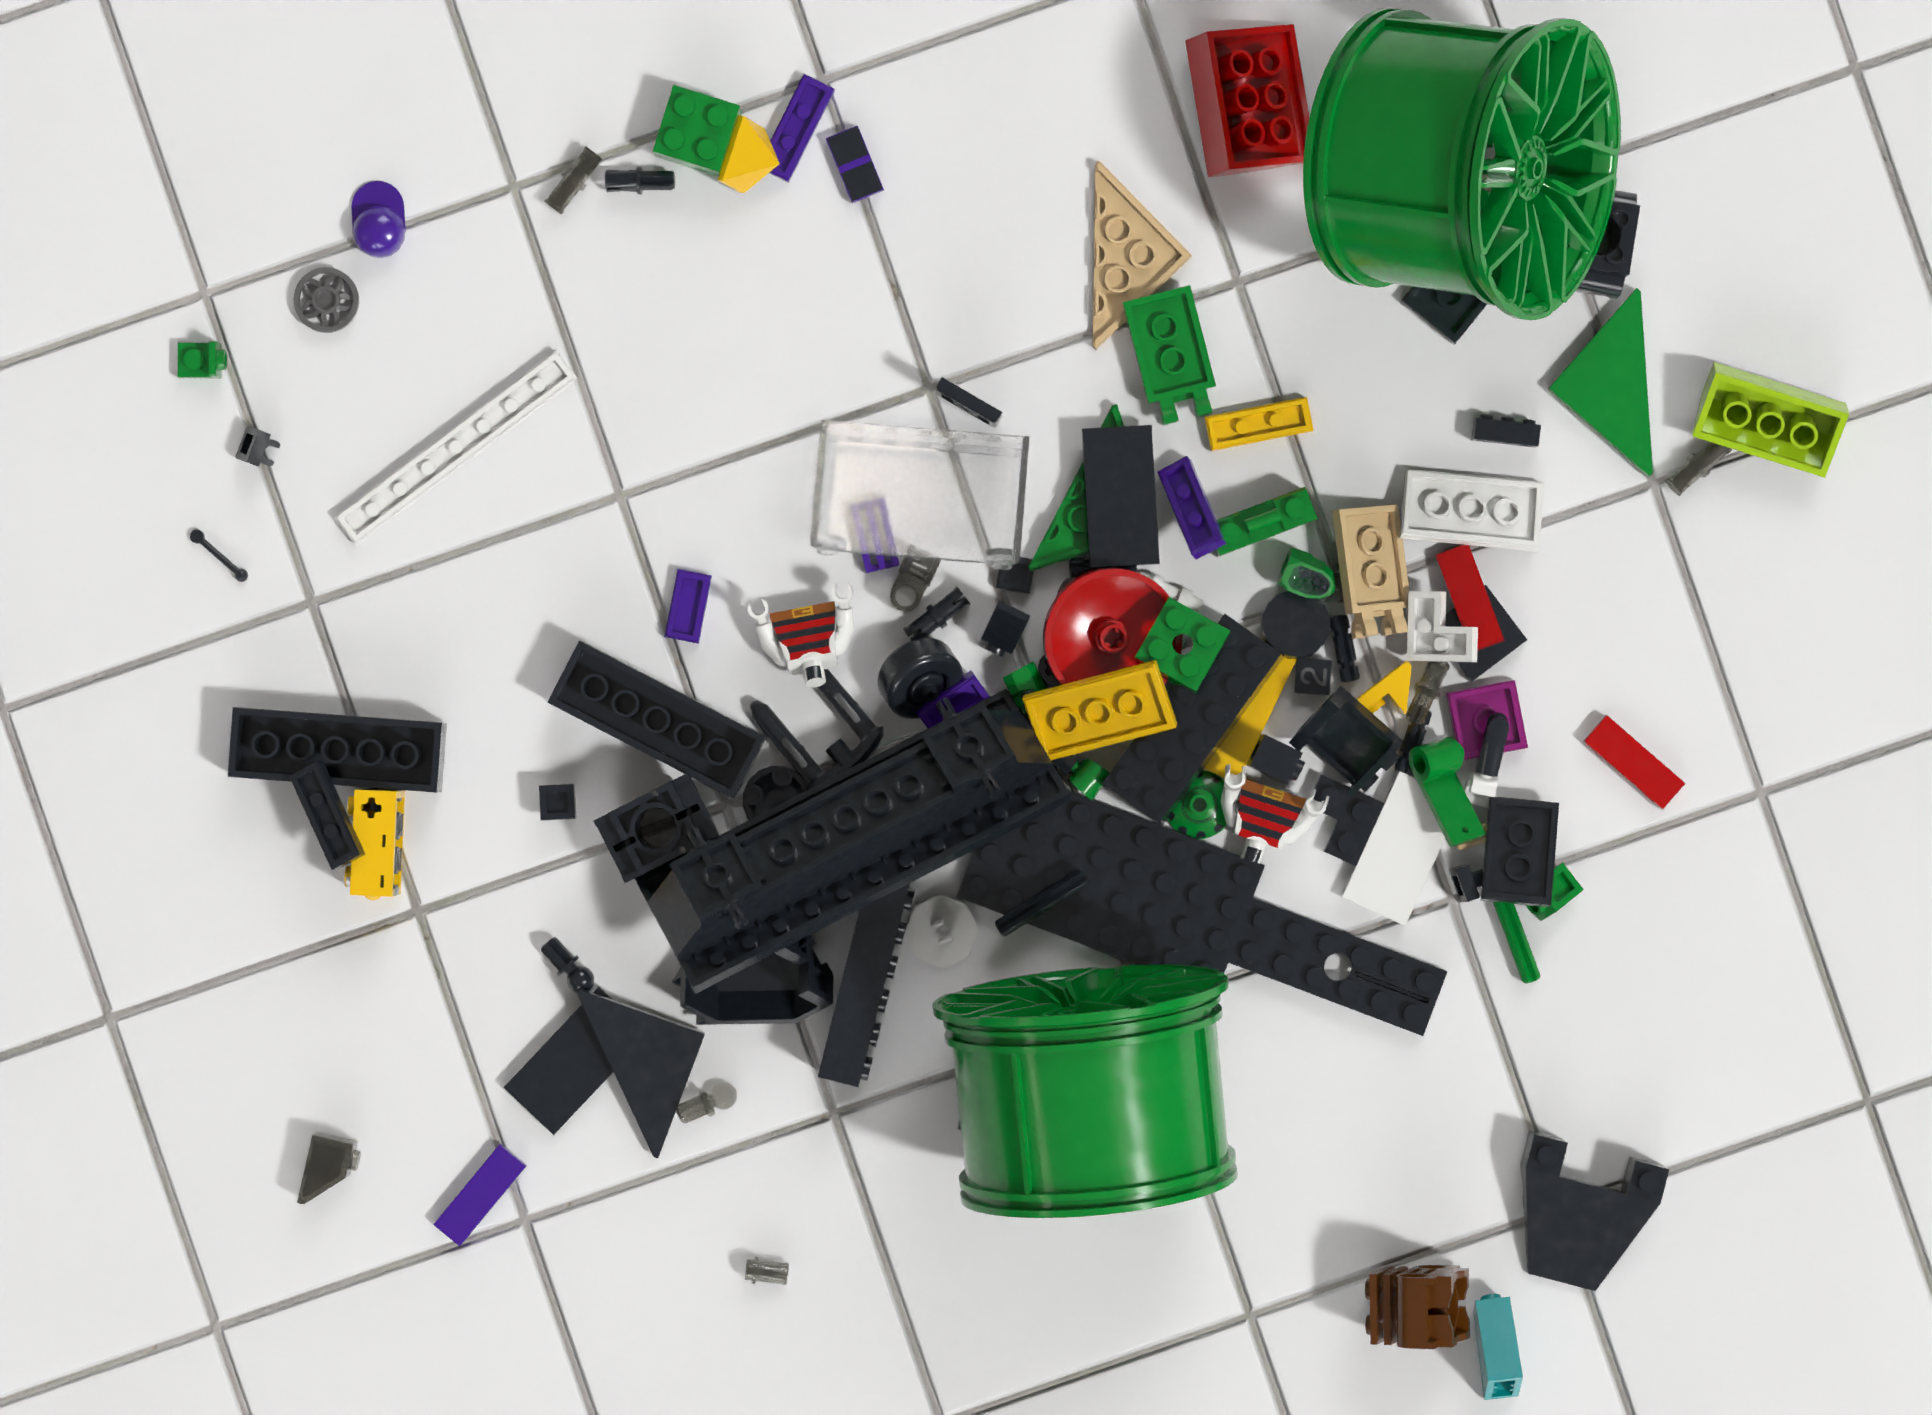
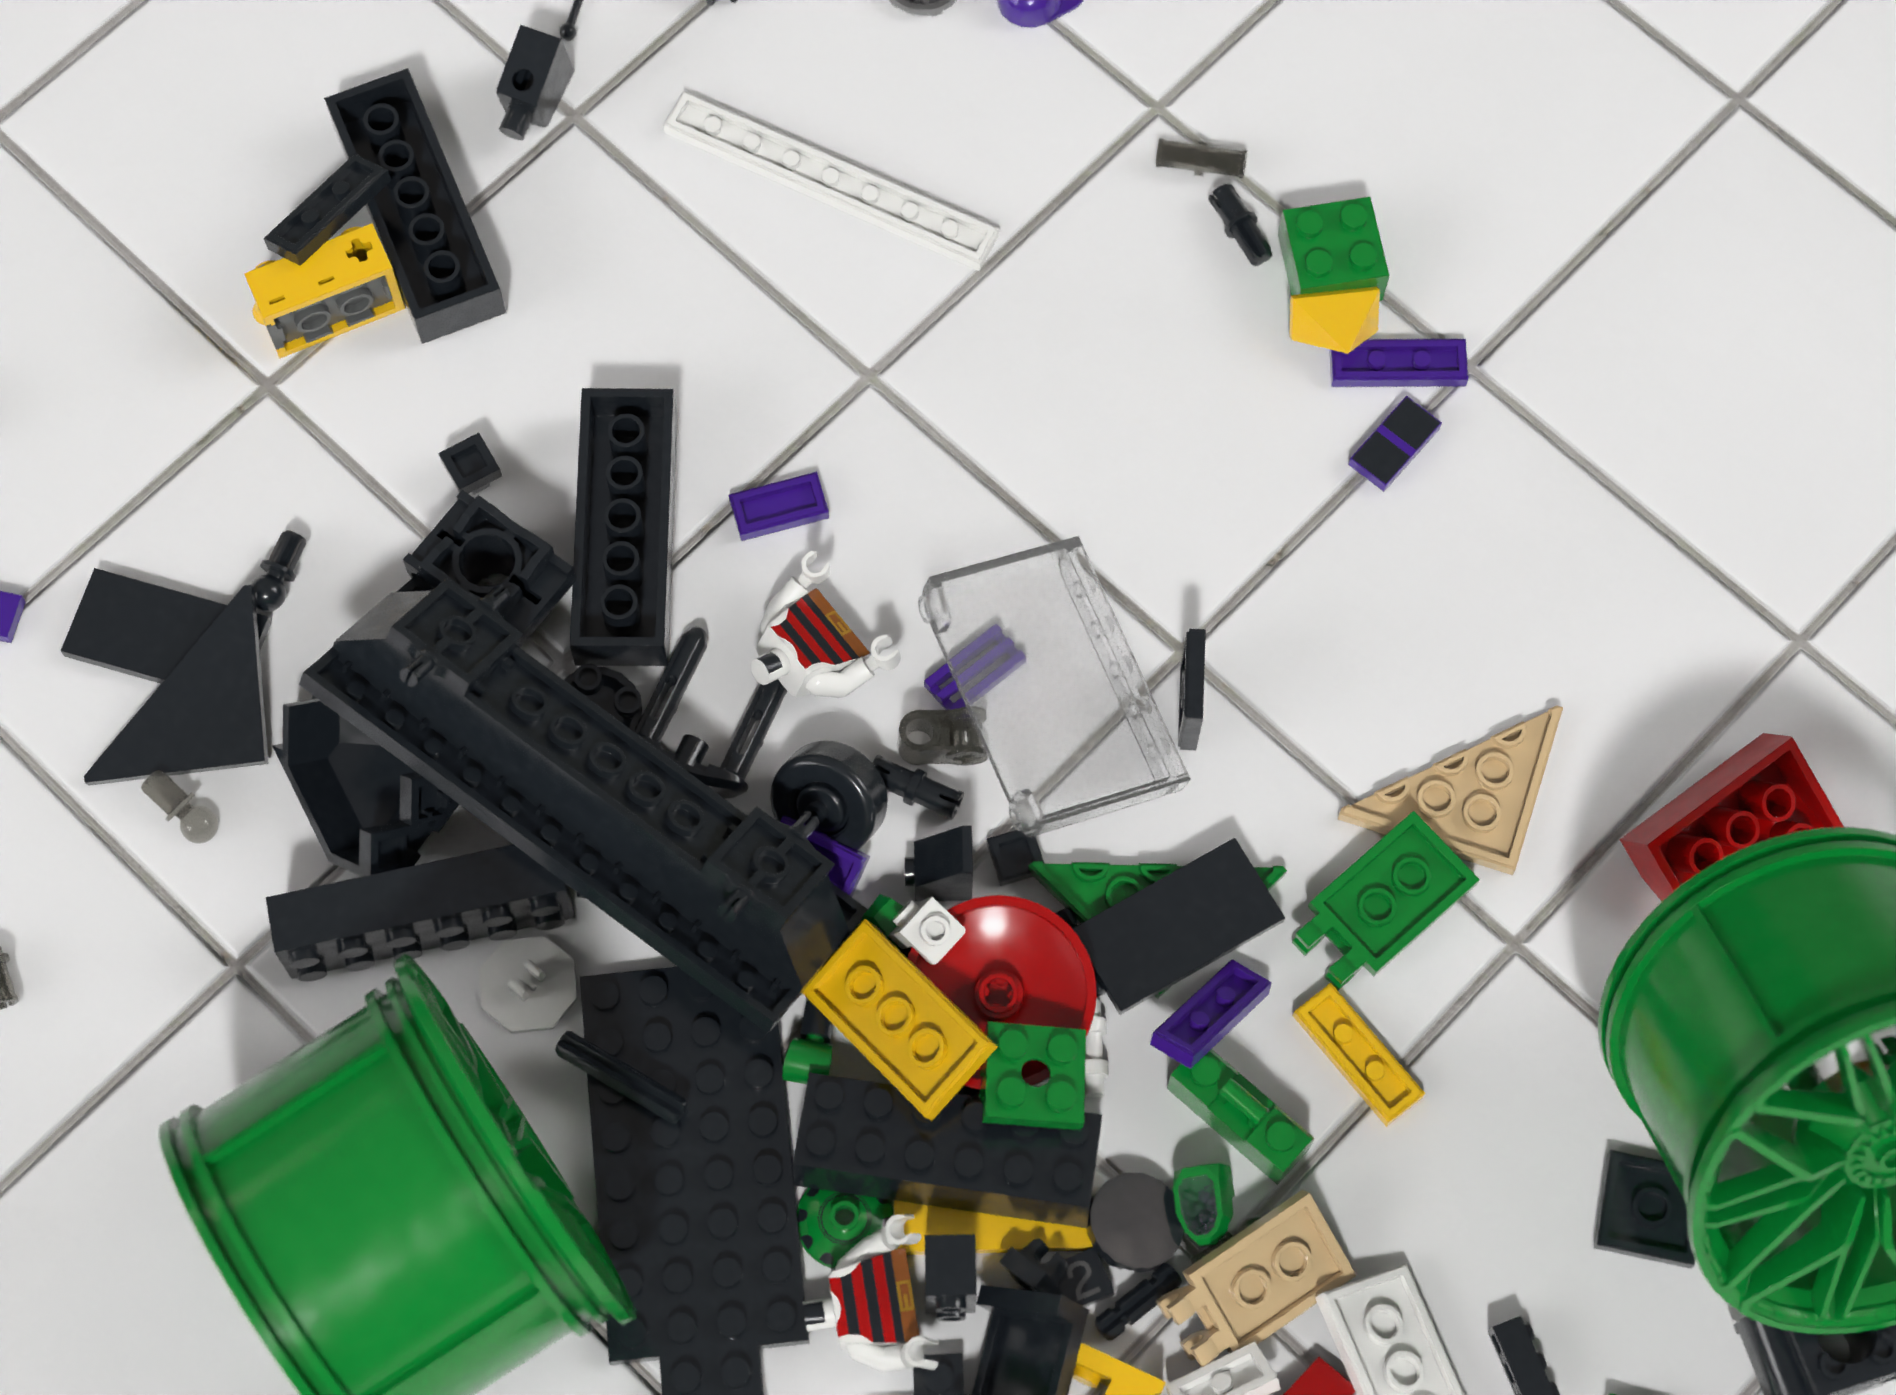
camera: 60 degrees right, 20 degrees down
(272, 611) = (532, 81): none -> black torso
(1050, 663) = (927, 929): none -> white bracket
(1293, 708) = (1028, 1270): none -> black tile

